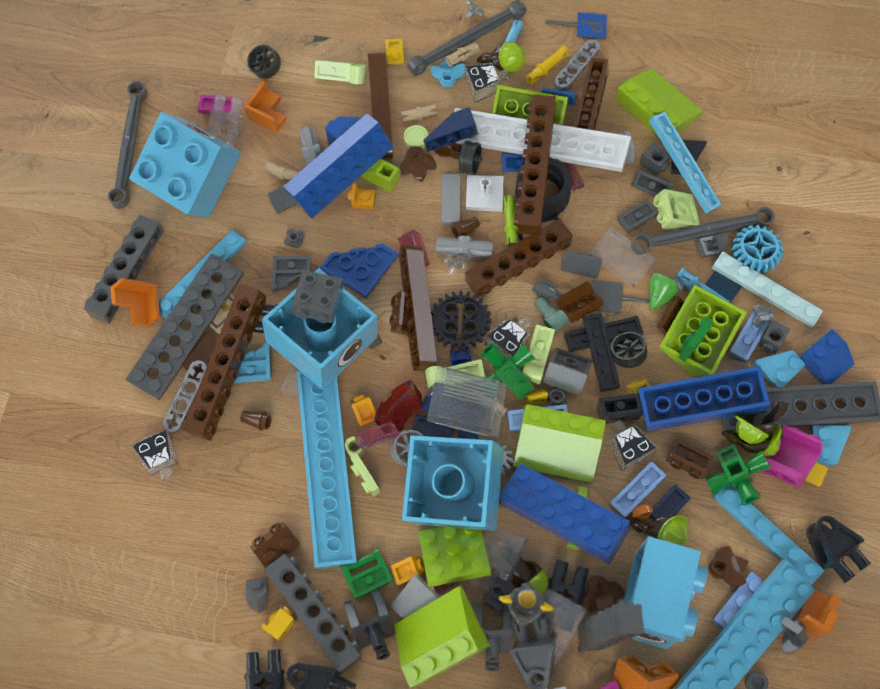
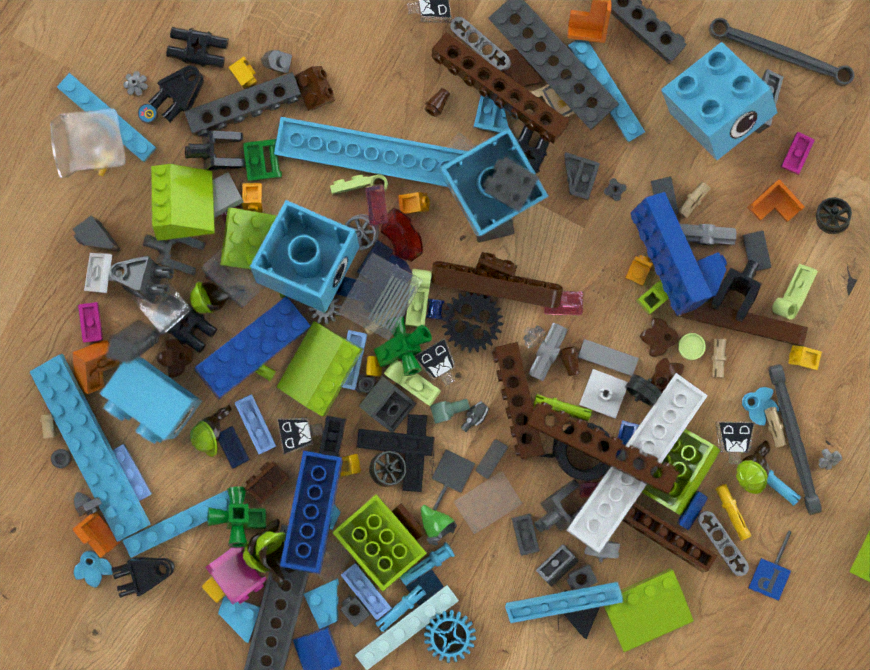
camera: 105 degrees right, 20 degrees up
(218, 117) = (769, 165): clear pin -> none
(314, 111) = (757, 249): none -> dark grey slope
(350, 100) = (741, 283): none -> black piece
(360, 267) = (561, 244): blue plate -> none
(453, 129) = (678, 385): dark blue slope -> none
(498, 588) = (203, 266): black bracket -> none
(526, 604) = (179, 282): dark grey hair -> none
(579, 302) = (450, 440): reddish brown bracket -> none
(604, 196) = (554, 512): none -> dark grey piece
(642, 512) = (233, 419): orange tile -> none
(676, 210) = (516, 574): yellowish green plate -> none
(695, 339) = (361, 520): green plate -> none
(702, 230) = (486, 592): dark grey piece -> none
(711, 245) = (468, 592): dark grey plate -> none
(731, 567) = (162, 478): reddish brown plate -> none
(749, 297) = (400, 608): none -> medium azure pin
(762, 315) = (377, 607): dark grey piece -> none
(856, 606) = (92, 571): none -> medium azure plate

